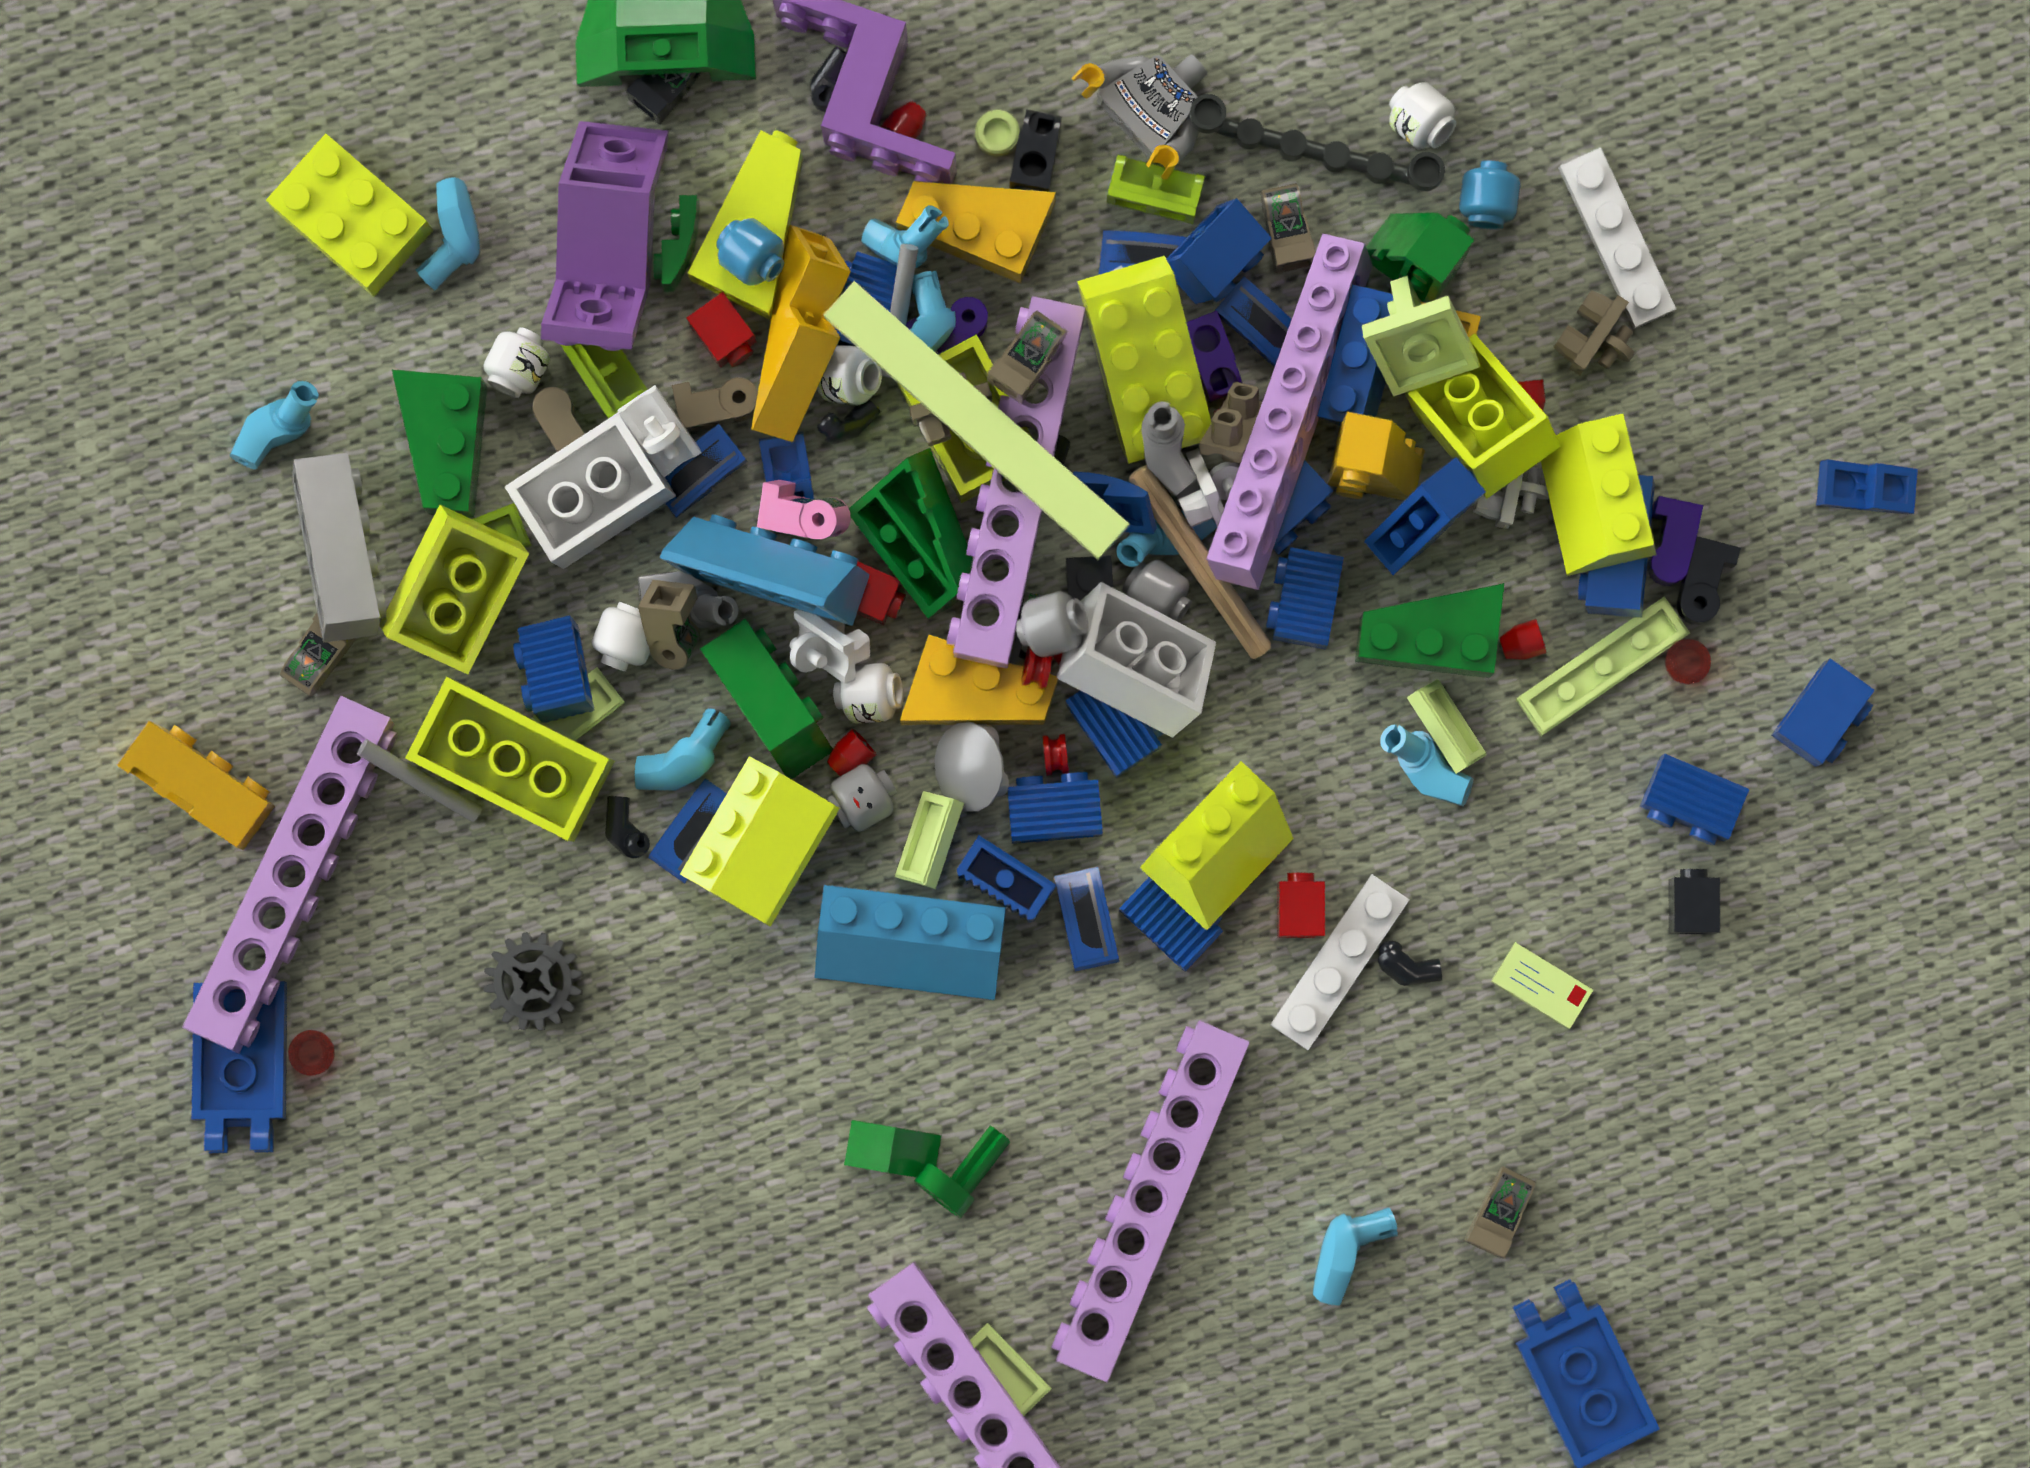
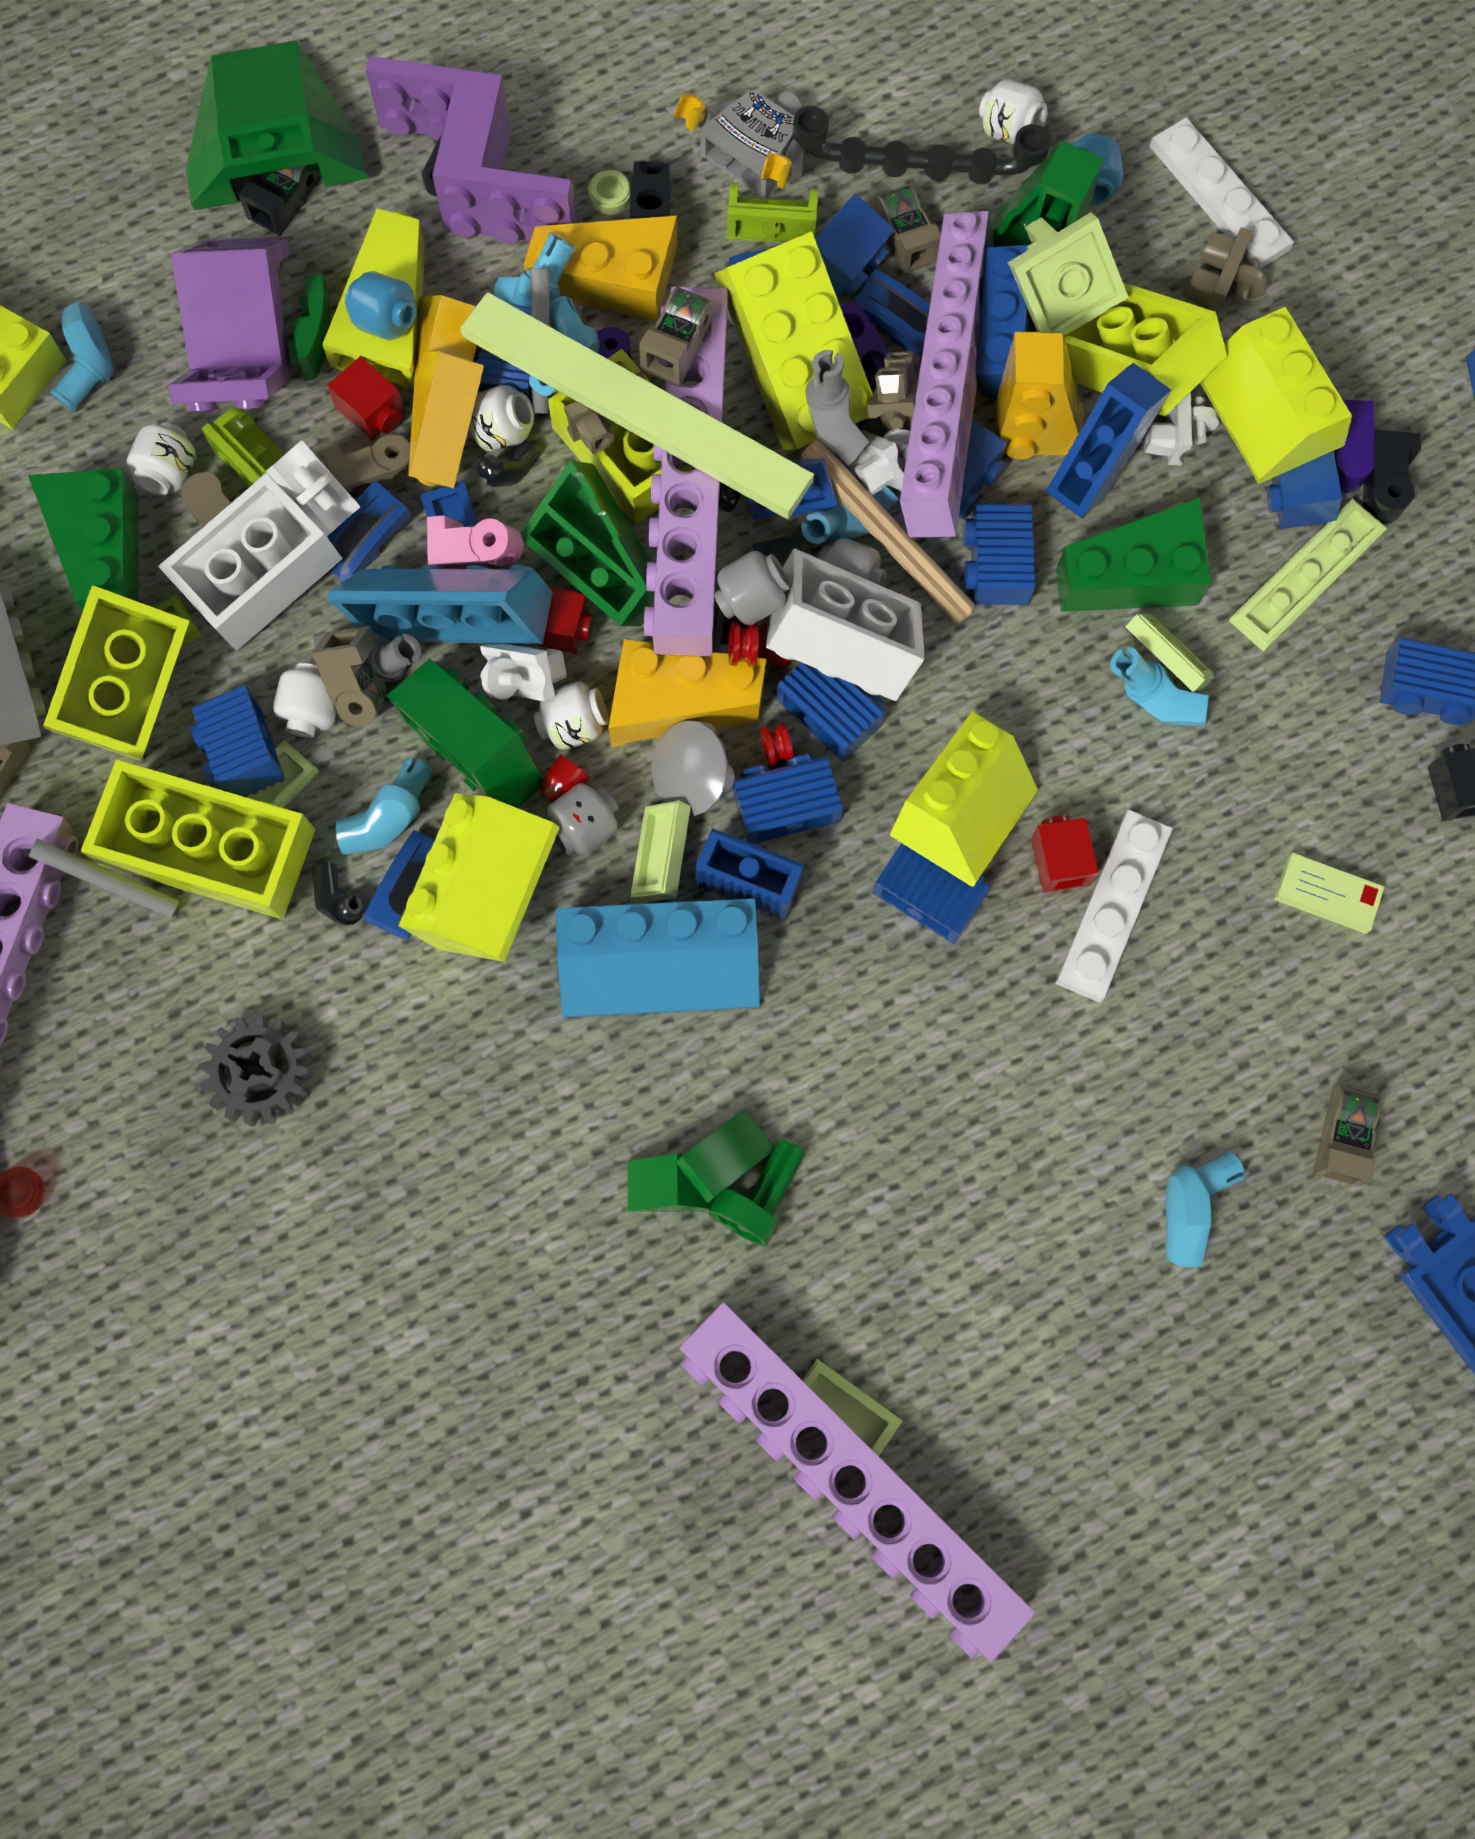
camera: 15 degrees left, 10 degrees down
(939, 1134) = (725, 1155): none -> green slope
(1086, 919) = (842, 905): blue slope -> none
(1099, 1355) = (1017, 1018): lavender brick -> none
(1404, 969) = (1183, 900): black arm -> none
(1523, 641) = (1228, 560): red hose -> none
(1687, 661) = (1392, 555): clear red plate -> none

